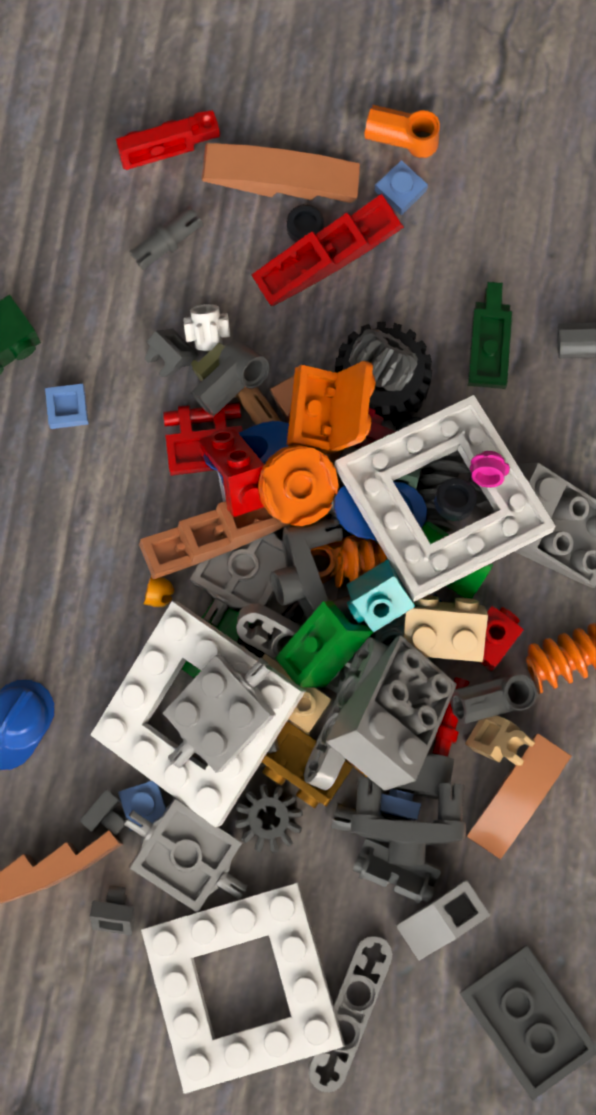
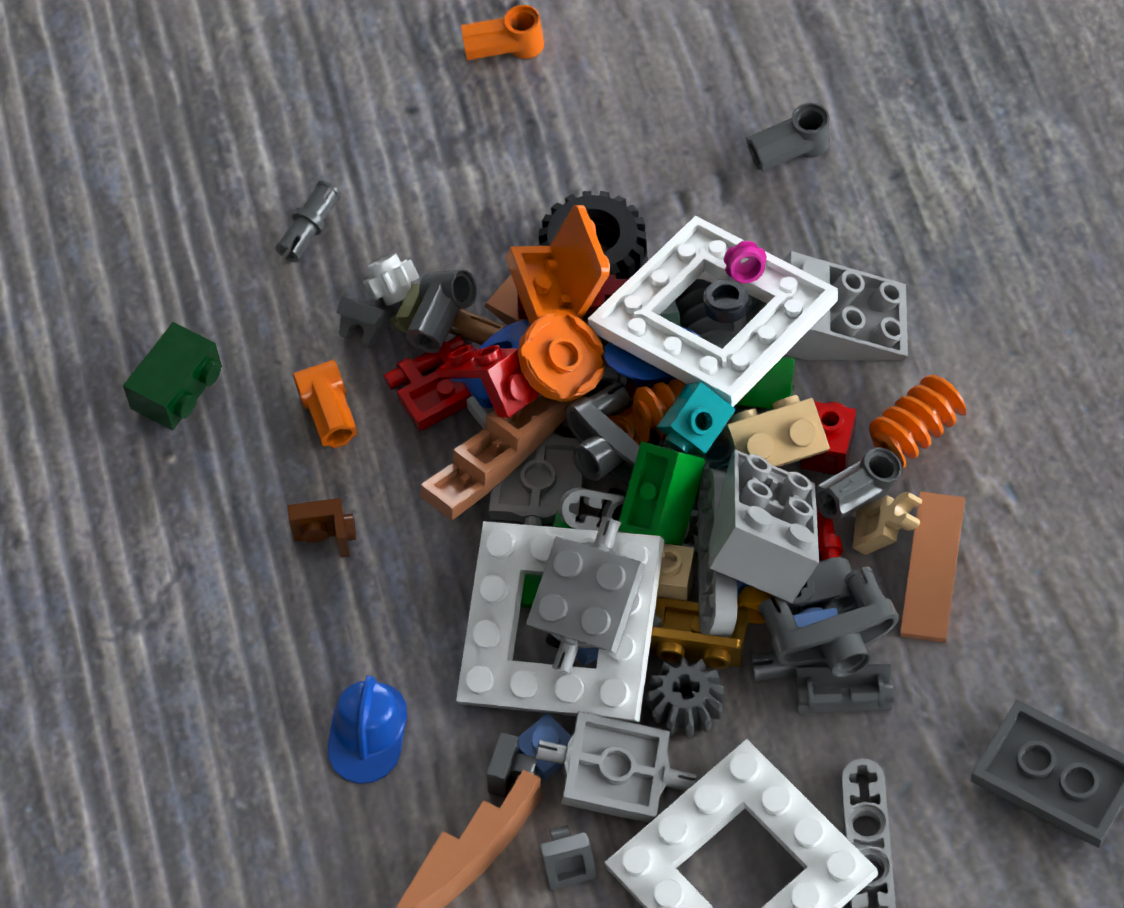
camera: 20 degrees left, 20 degrees down
(49, 525) = (322, 519): none -> reddish brown bracket
(66, 406) = (279, 409): medium blue plate -> none
(106, 408) = (324, 395): none -> orange piece
(158, 592) = (458, 539): light orange hinge -> none
(166, 140) = (264, 136): red hinge -> none
(281, 171) = (388, 118): nougat slope -> none
(304, 220) = (444, 157): black tile -> none
(327, 251) = (480, 169): red slope -> none
(390, 358) = (604, 212): dark grey gear -> none
(401, 187) = (525, 88): medium blue plate -> none
(443, 920) = (917, 708): light grey slope -> none
(490, 340) = (685, 179): dark green hinge -> none

